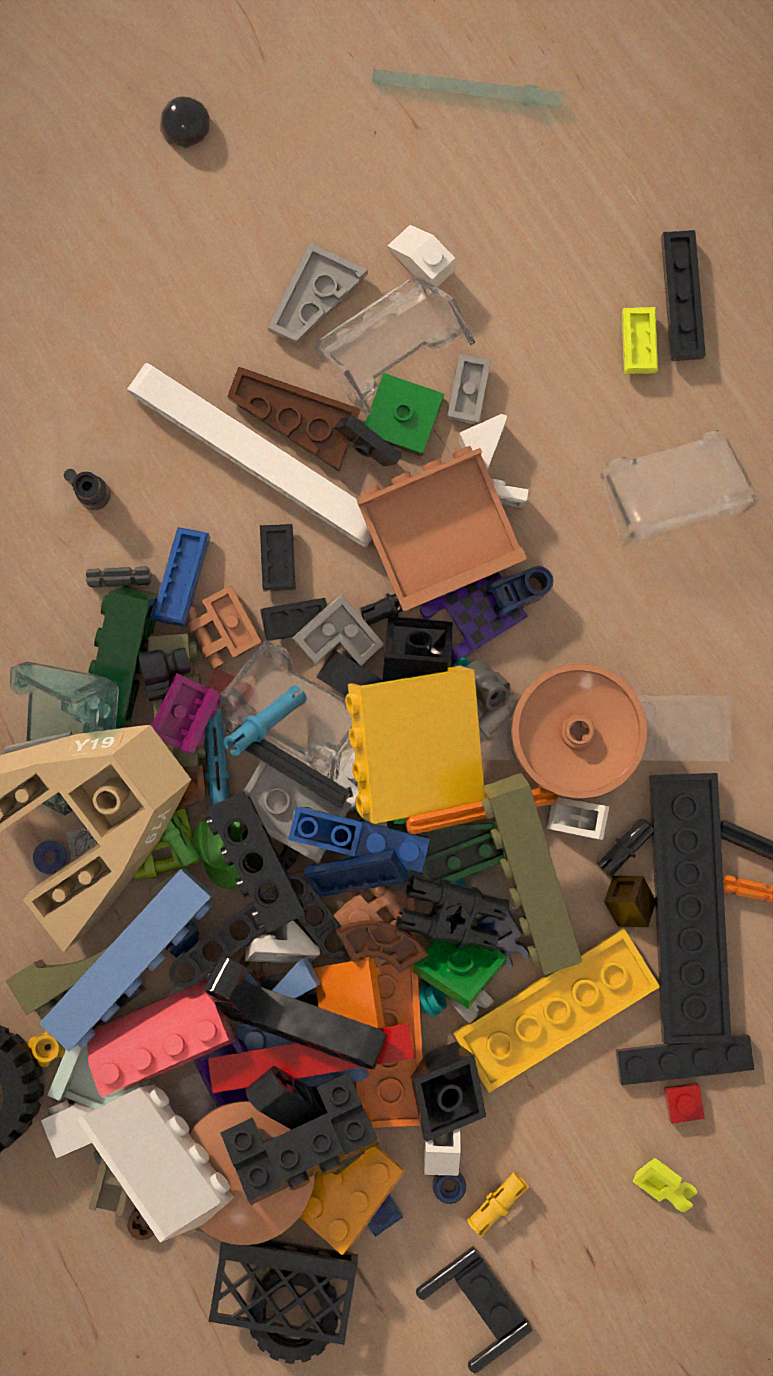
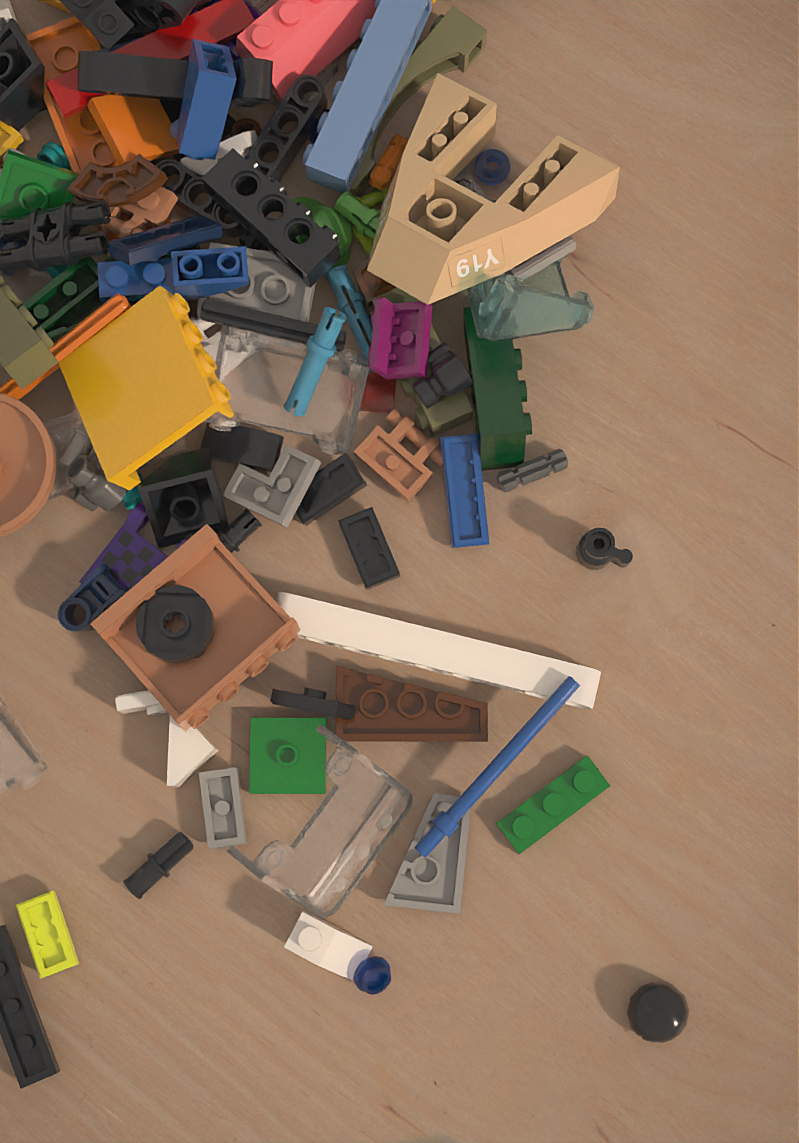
camera: 165 degrees right, 5 degrees down
(137, 890) = (388, 163): none -> orange axle
(205, 304) = (553, 804): none -> green plate
(275, 986) = (205, 100): none -> blue slope
(294, 311) = (447, 821): none -> blue bar
(394, 222) = (372, 975): none -> clear blue plate
(475, 531) = (161, 608): none -> black plate
(534, 363) = (158, 865): none -> black axle

